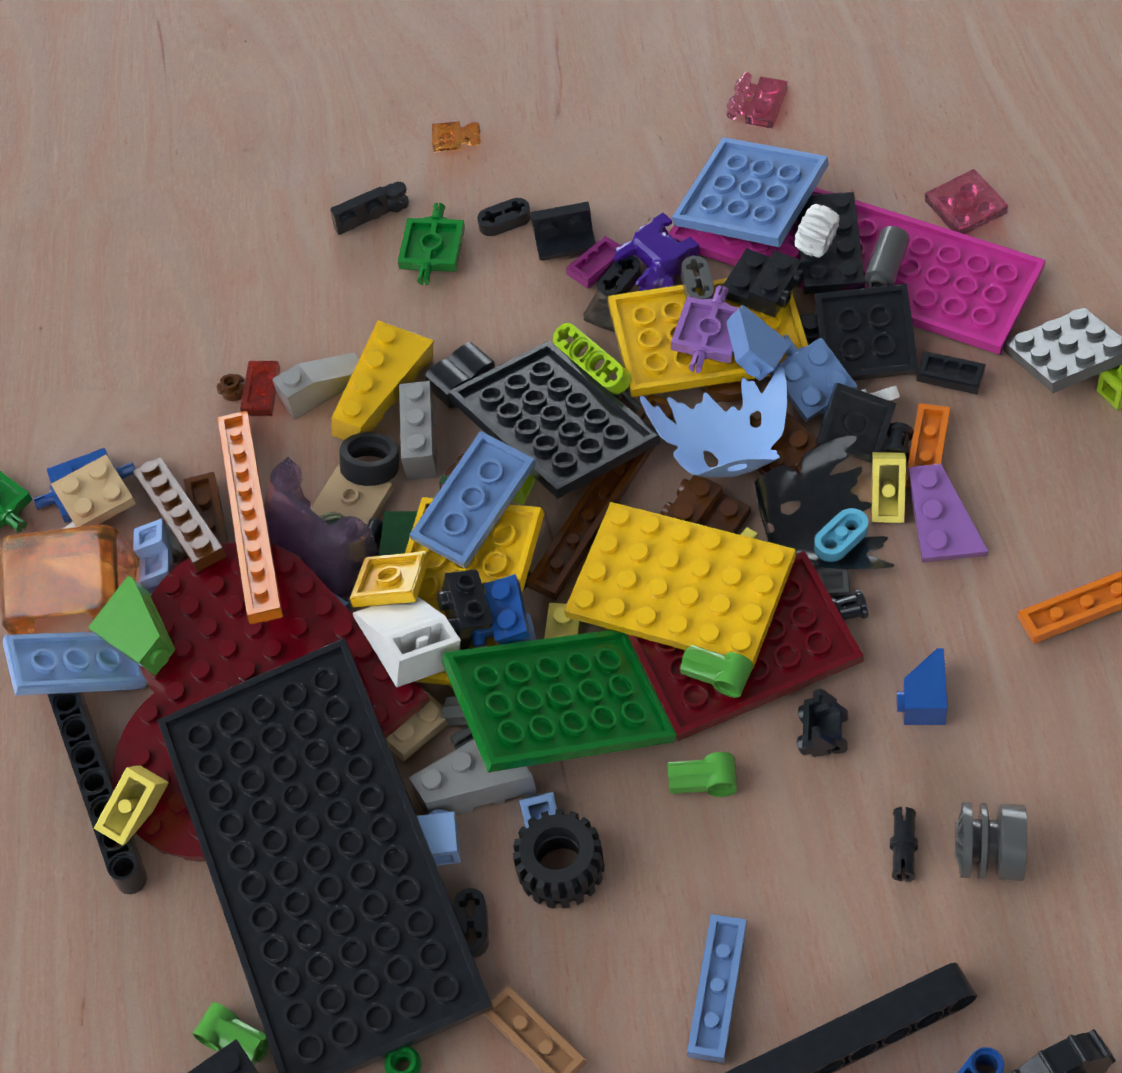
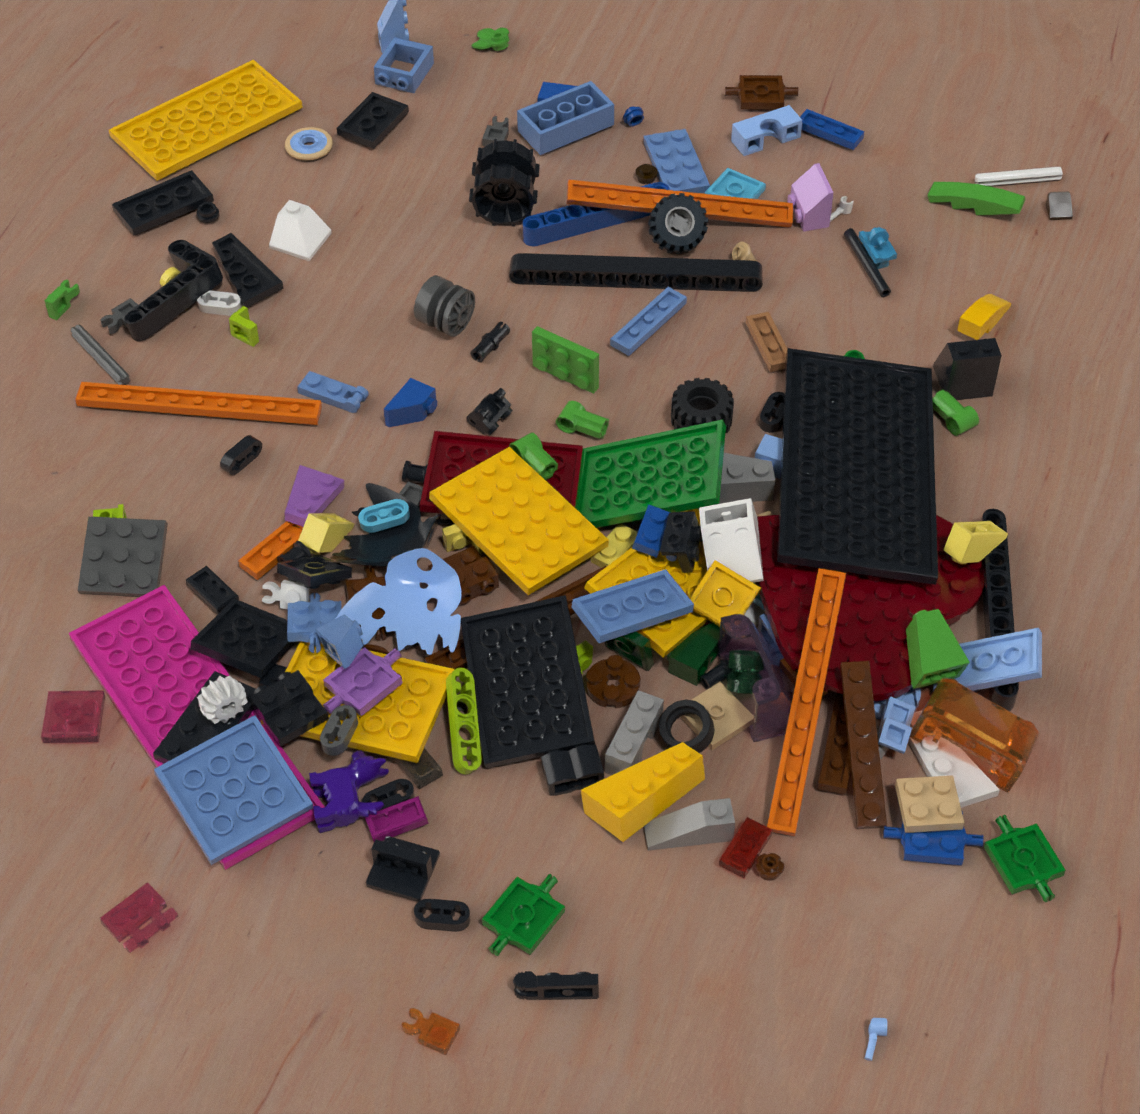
camera: 160 degrees left, 5 degrees down
(82, 305) = (877, 1027): none -> light blue hand
(774, 834) = (565, 359): none -> bright green plate
(887, 257) = (183, 677): dark grey brick -> none
(1038, 670) = (332, 392): none -> medium blue plate
(1063, 527) = (241, 455): none -> black beam

